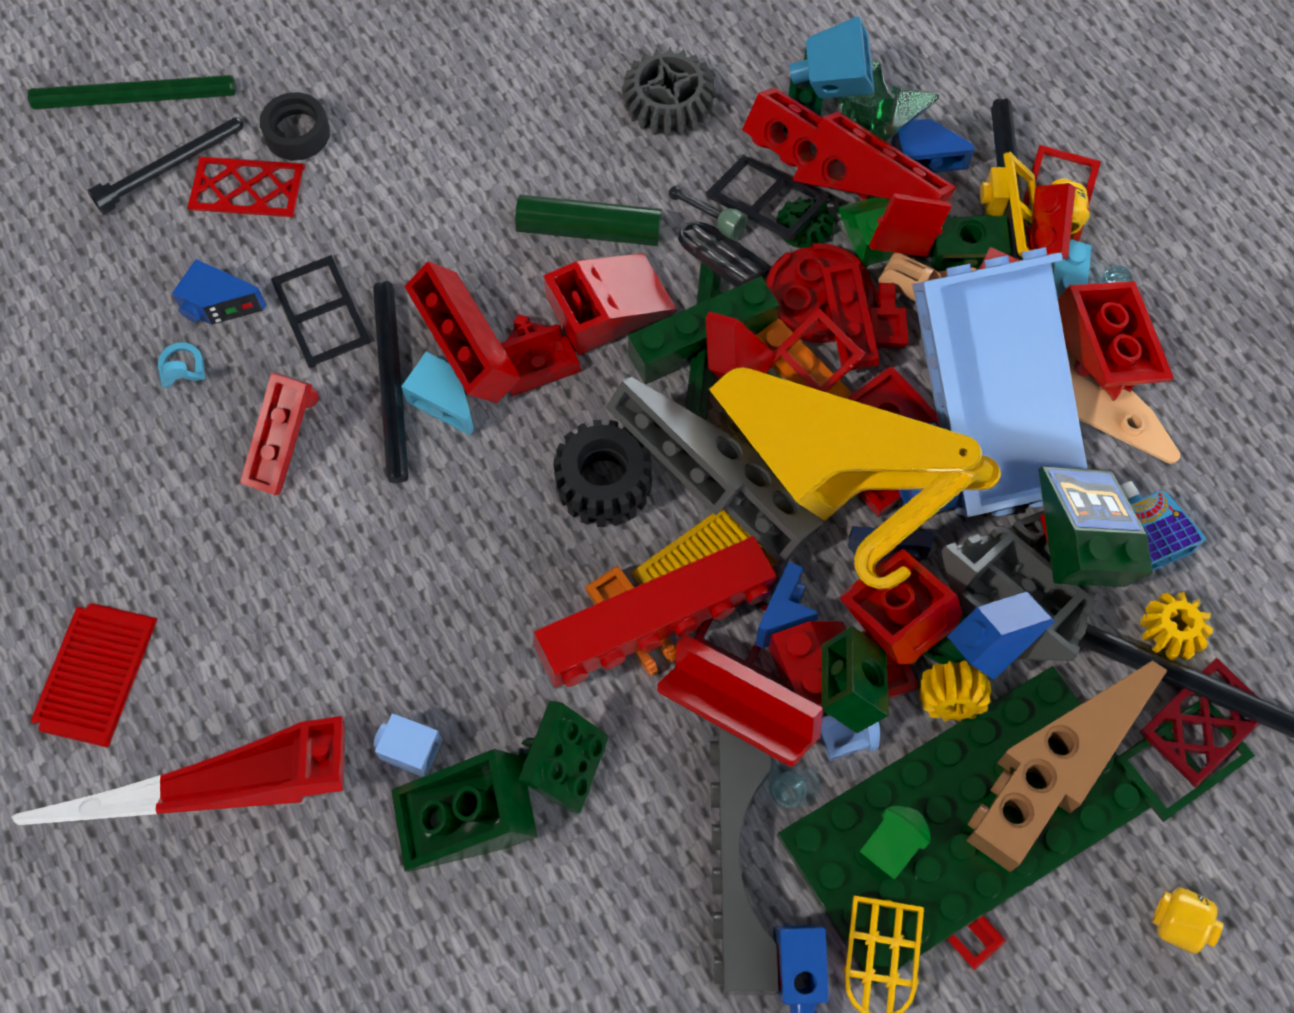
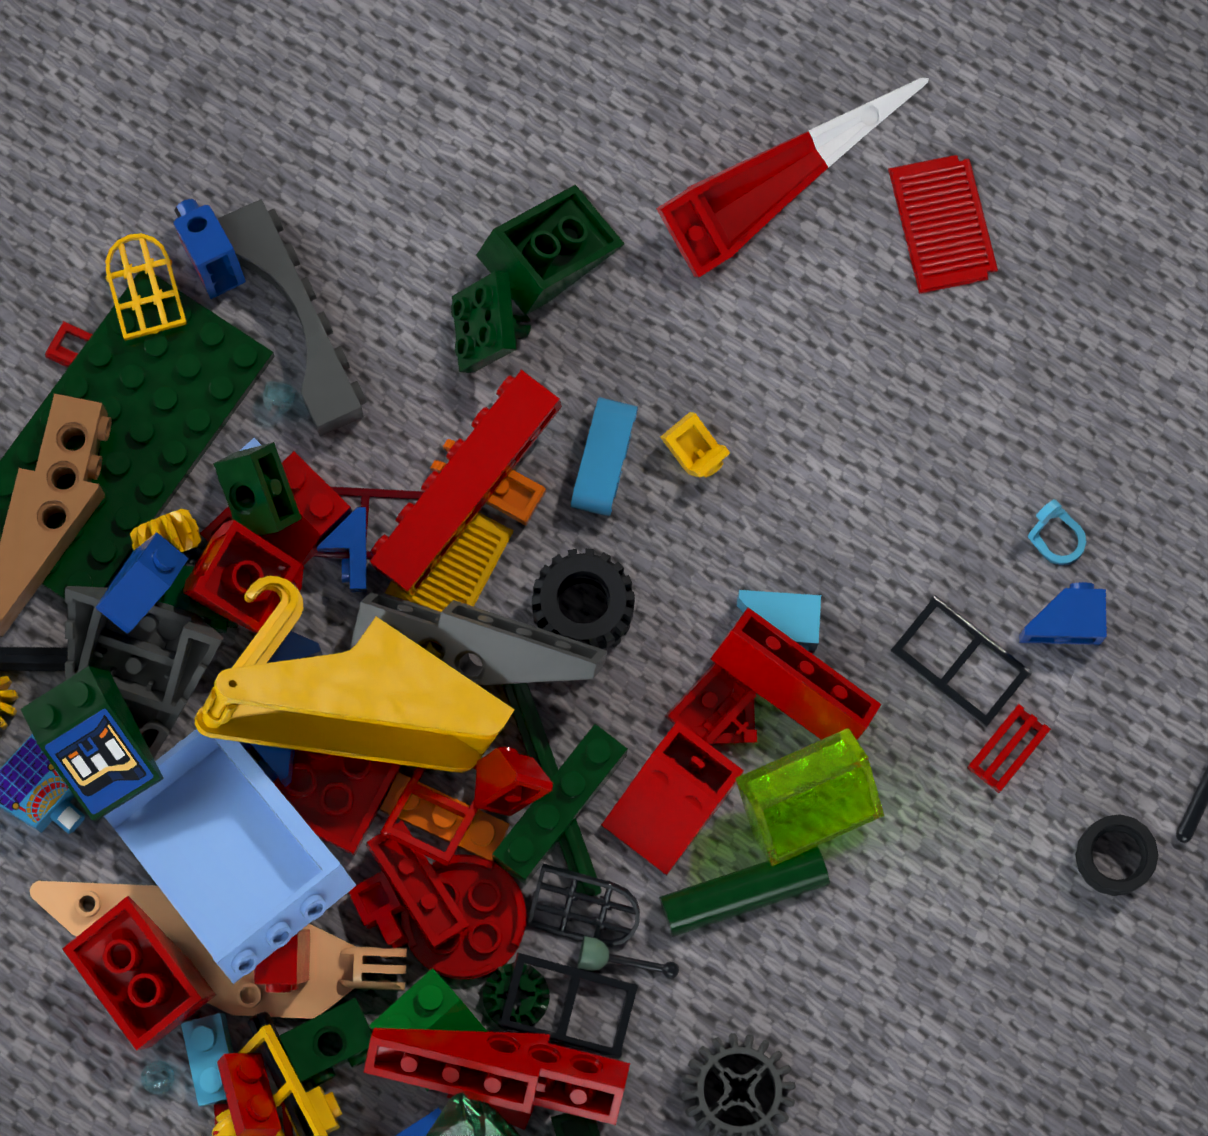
camera: 150 degrees right, 10 degrees up
(259, 207) = (1119, 800): red window -> none
(277, 432) = (913, 503): piece -> none
(324, 226) = (1029, 721): none -> red tile
(390, 383) = (845, 616): black axle -> none
(407, 745) = (628, 279): light blue brick -> none
(433, 562) = (695, 446): none -> yellow bracket
(500, 243) = (810, 796): none -> clear neon green piece
(516, 592) = (603, 456): none -> dark azure beam
(742, 702) = (353, 433): red panel -> none
(897, 839) = (165, 380): green tile -> none
(910, 225) = (393, 1000): red piece -> none

